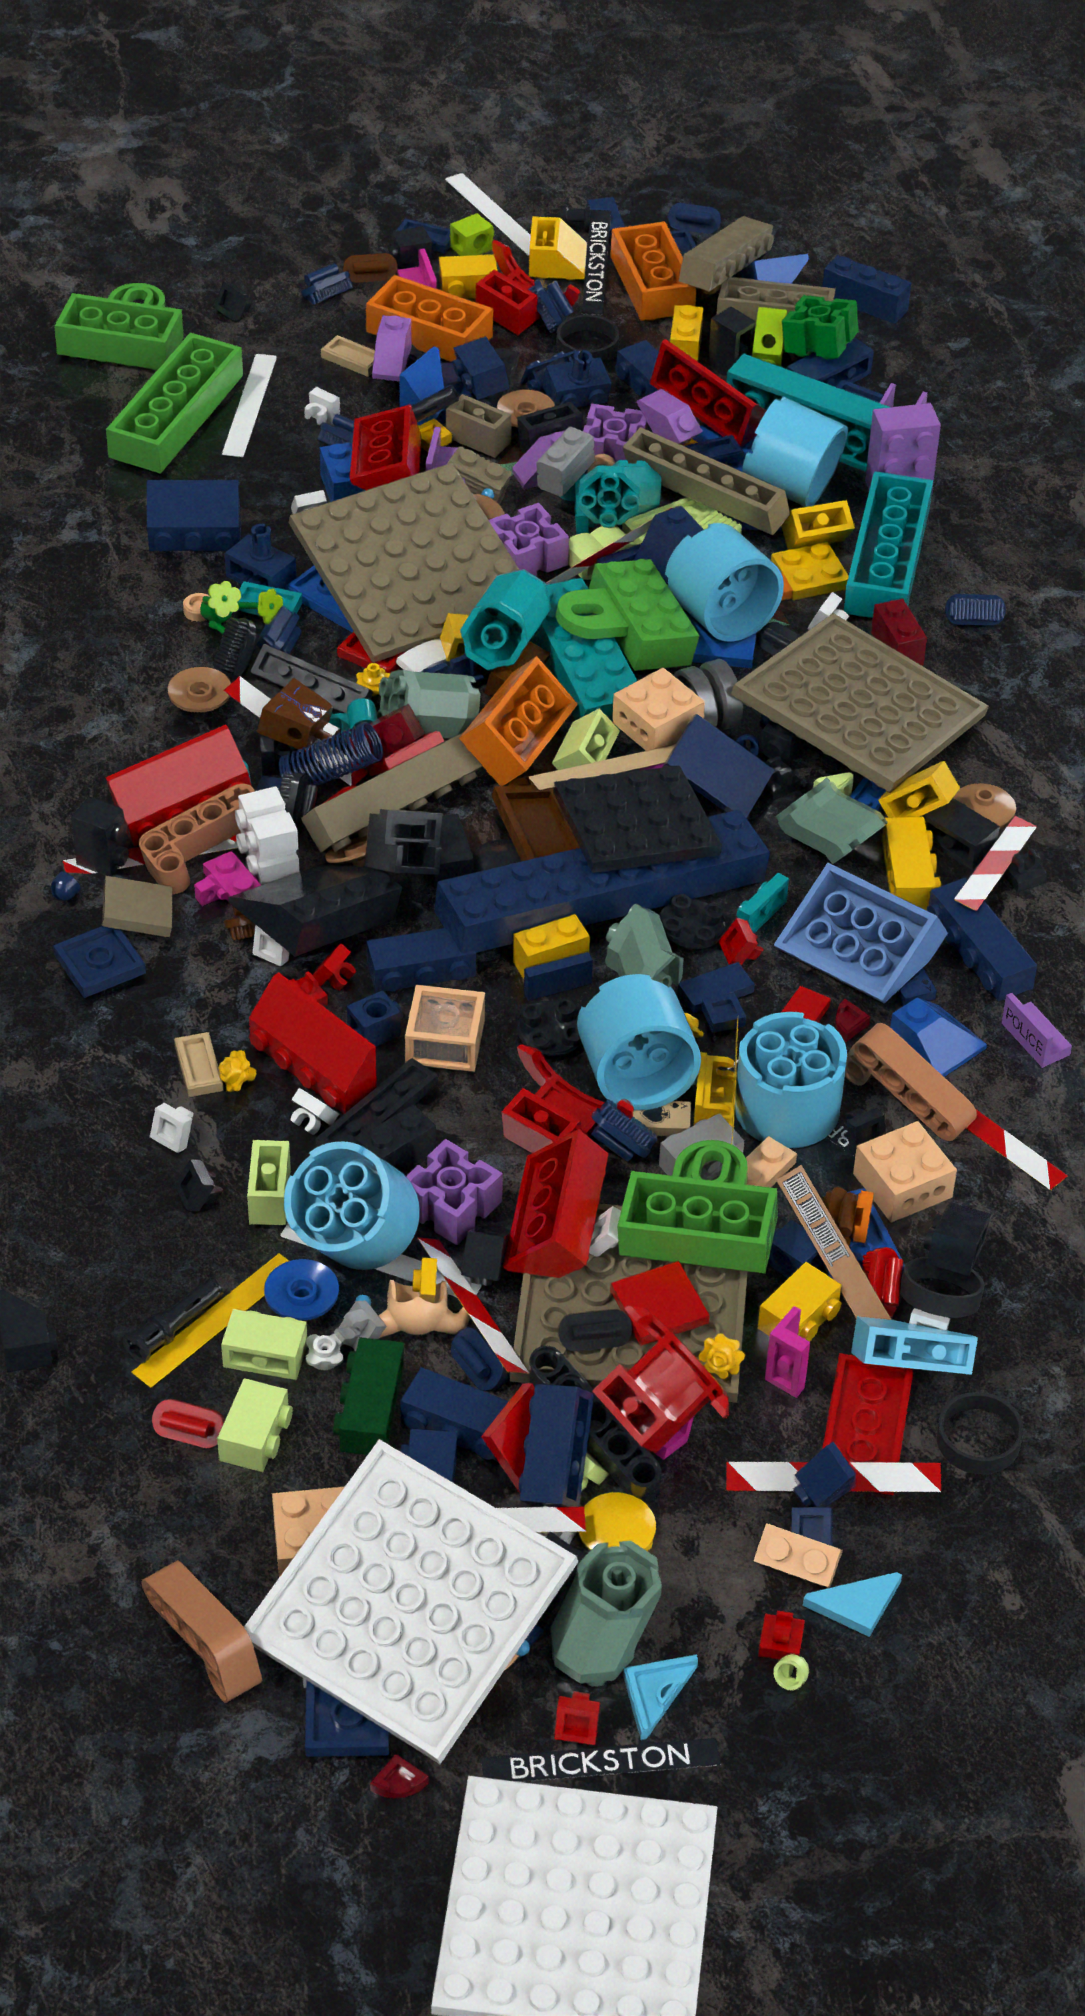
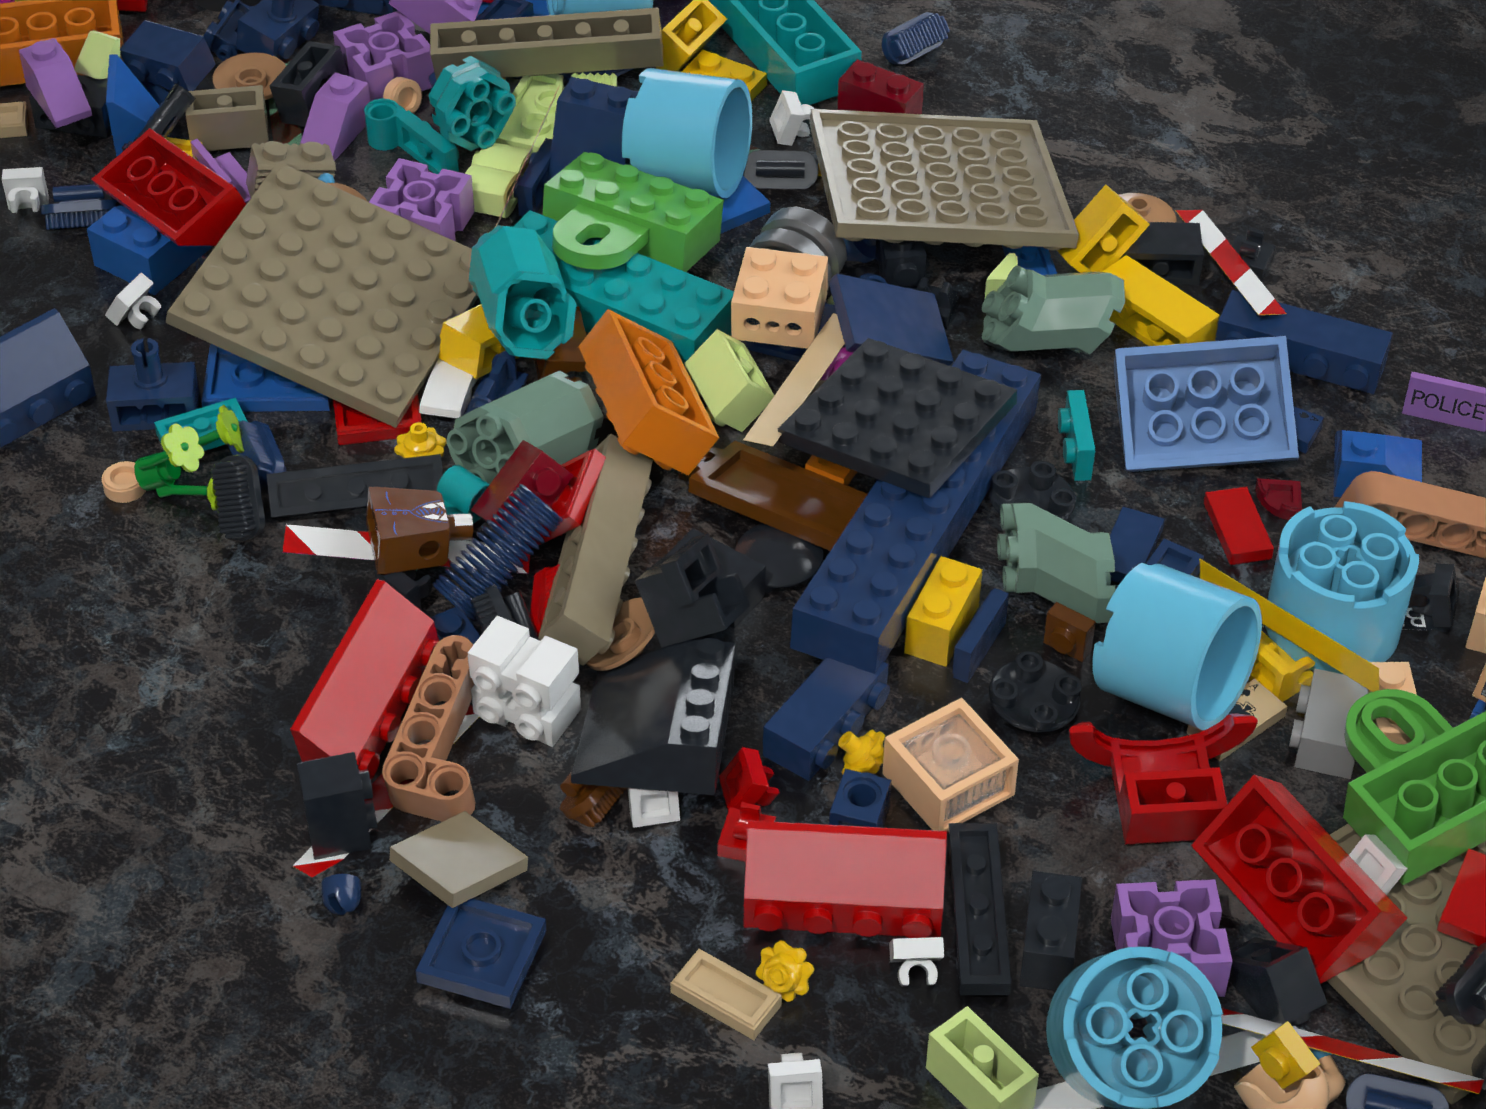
camera: 40 degrees left, 0 degrees up
(198, 689) = (241, 570): medium nougat dish -> none
(224, 879) = (519, 763): dark pink hinge -> none
(408, 988) = (863, 752): none -> yellow plant
(445, 342) = (95, 54): none -> yellowish green slope
(565, 461) = (381, 101): light grey brick -> none
(620, 1133) = (1245, 752): dark blue piece -> none
(740, 943) = (1103, 486): red tile -> none

